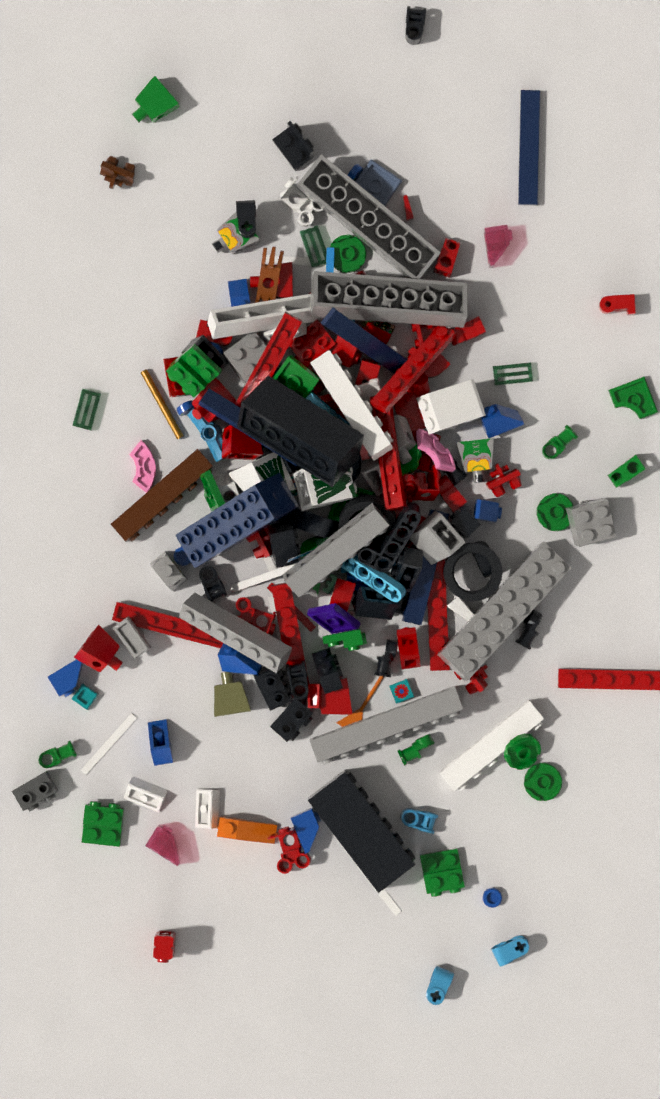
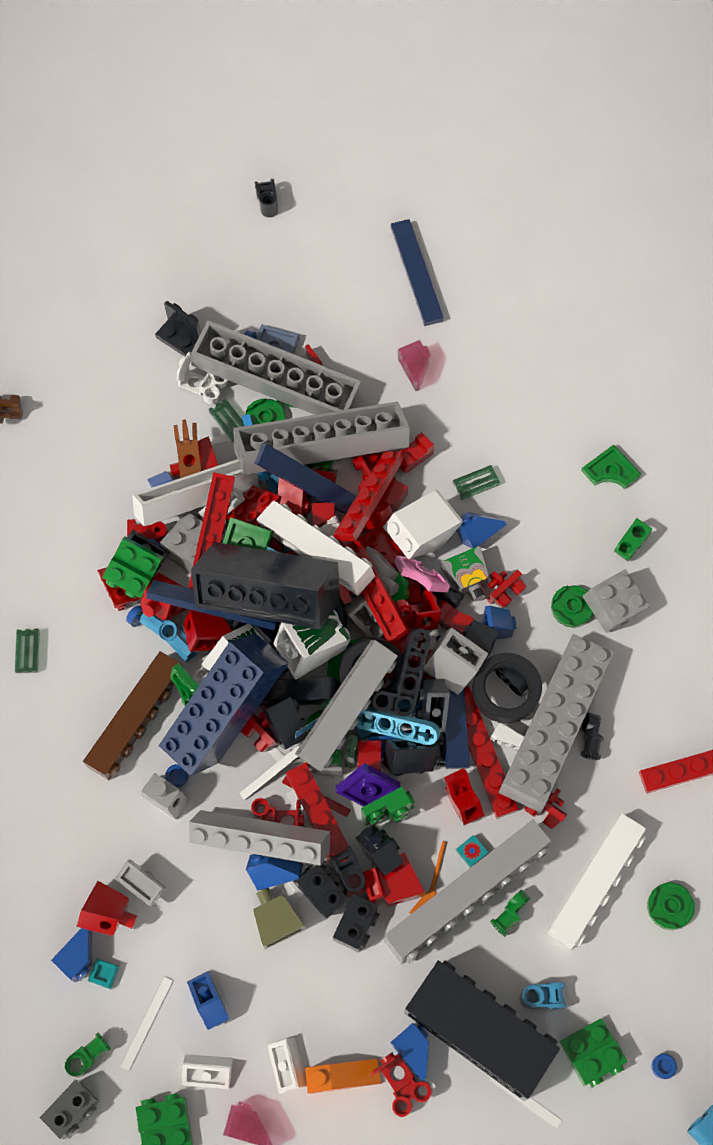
camera: 15 degrees left, 20 degrees down
(145, 466) = (107, 690): bright pink tile -> none
(154, 102) = (25, 332): green torso -> none
(162, 405) = (109, 621): pearl gold bar -> none
(163, 624) = (178, 858): red plate -> none
(212, 584) = (220, 797): black piece -> none
(231, 237) = (143, 430): torso -> none
(246, 215) = (148, 405): black piece -> none
(384, 663) = (442, 822): black connector -> none
(447, 258) = (369, 389): red leg -> none
(522, 751) = (635, 875): green tile -> none
(559, 442) = (550, 533): green connector -> none
(618, 303) = (560, 383): red leg -> none

